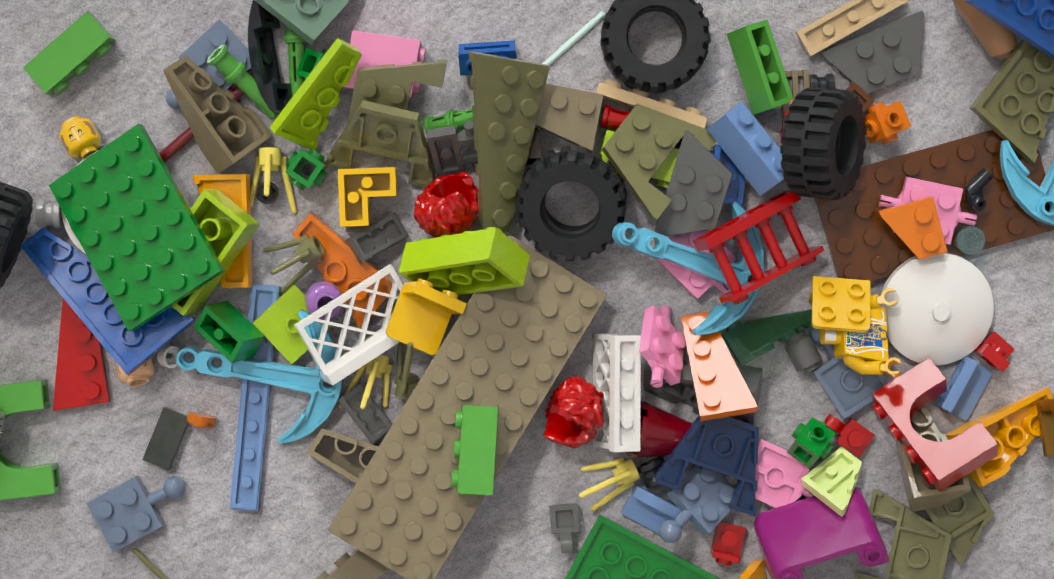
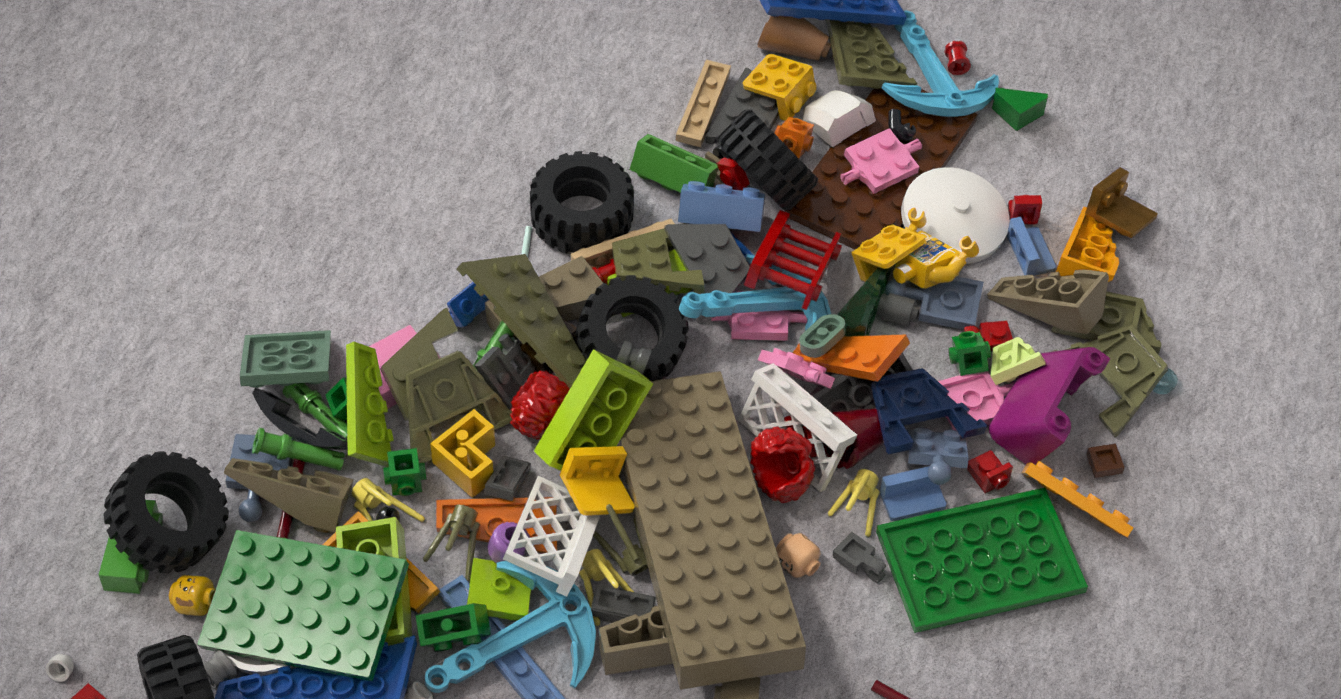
camera: 45 degrees left, 35 degrees down
(109, 98) = (142, 535): none -> black tyre
(475, 450) = (736, 517): bright green brick -> none
(523, 485) = (798, 555): none -> light nougat head
(539, 243) = (633, 356): none -> dark grey wheel
(649, 469) = (883, 464): black wheel -> none
(704, 340) = (822, 335): none -> sand green plate
(917, 226) = (886, 166): orange wing -> none
(930, 56) = (782, 80): none -> yellow bracket
(940, 461) = (1065, 272): arch -> none
(941, 130) = (838, 116): none -> white slope
(970, 240) = (929, 155): clear light blue plate -> none

